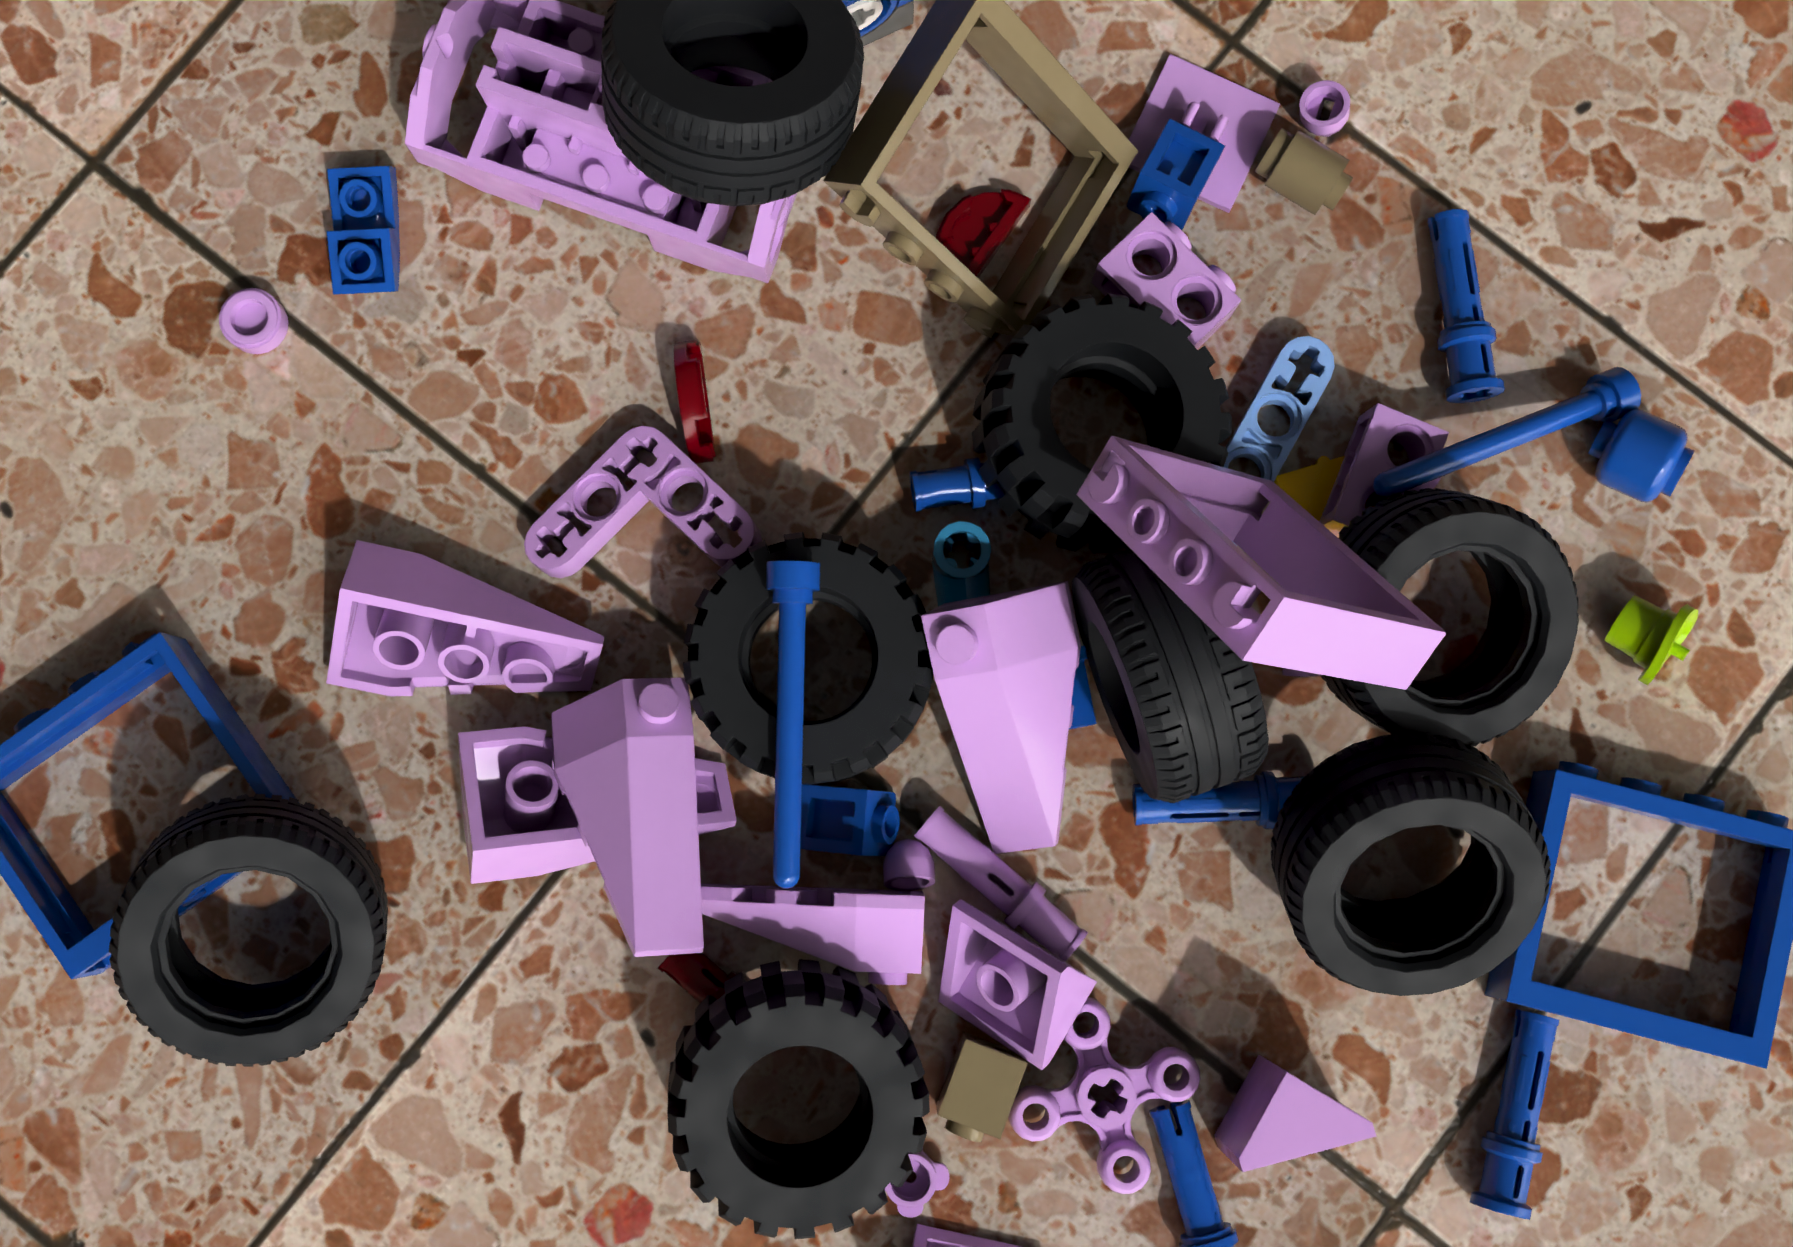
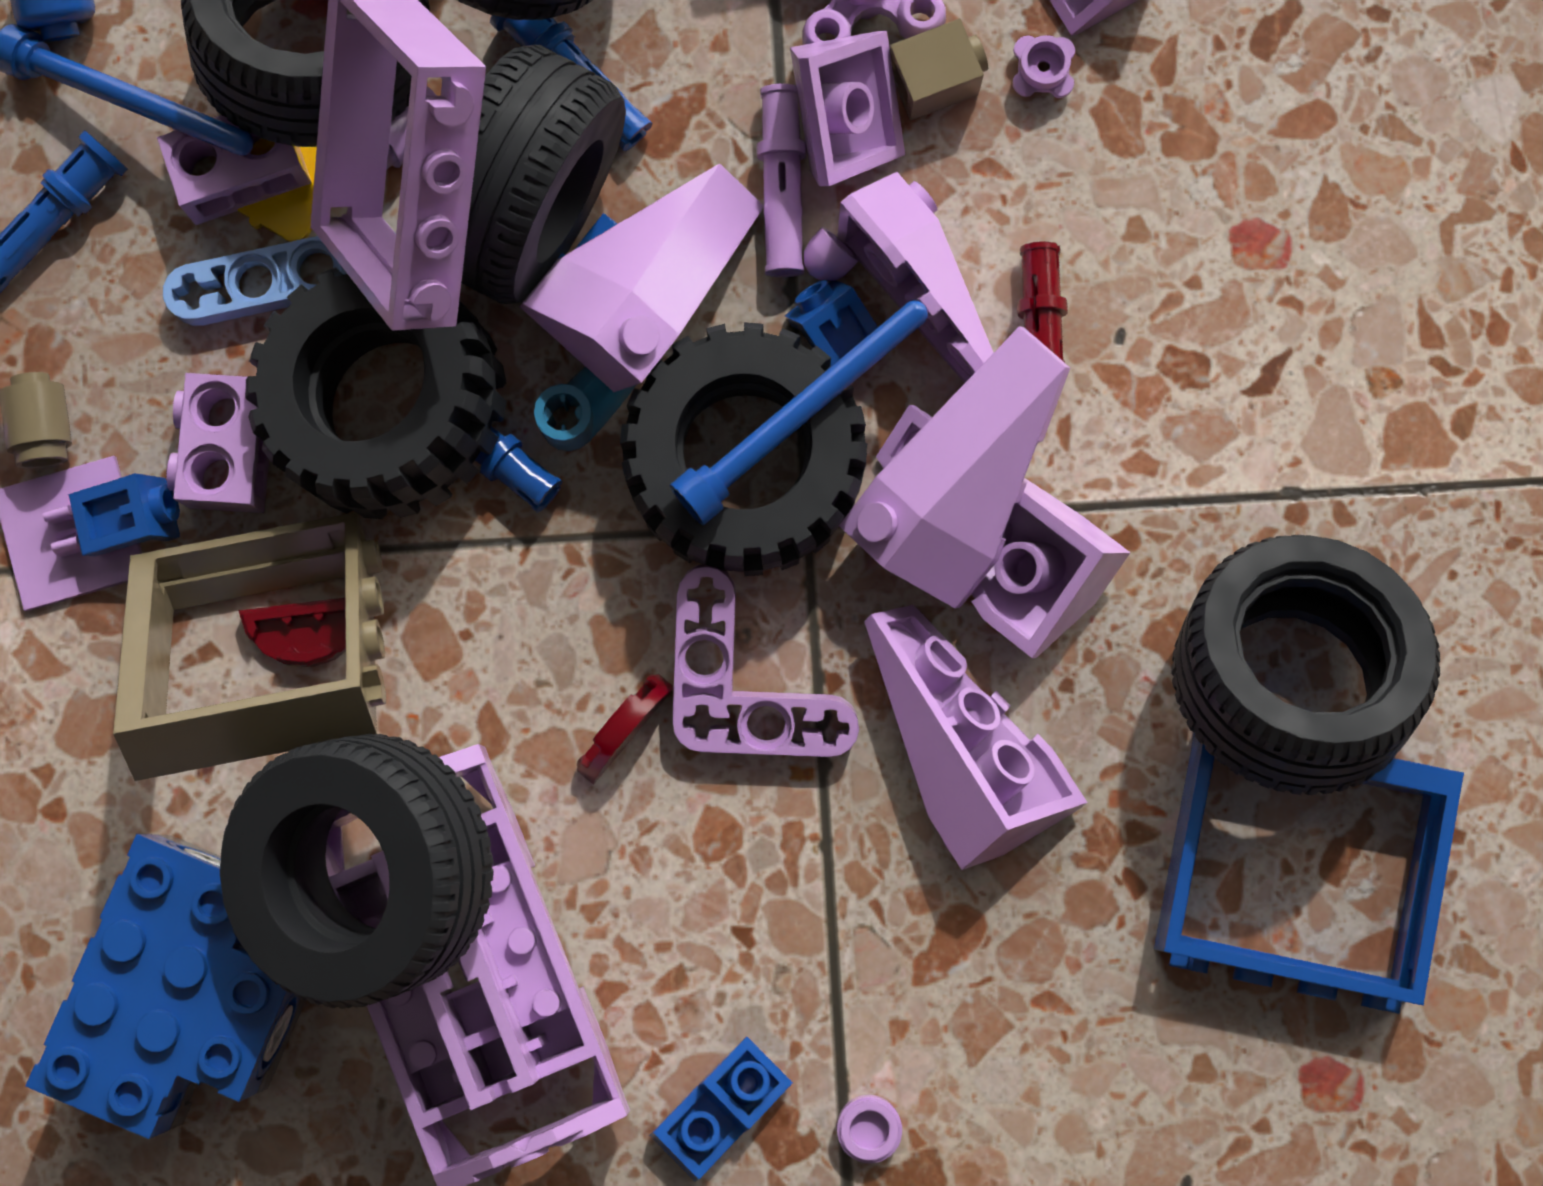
camera: 130 degrees left, 0 degrees up
(810, 1180) = (1074, 108): black tyre -> none

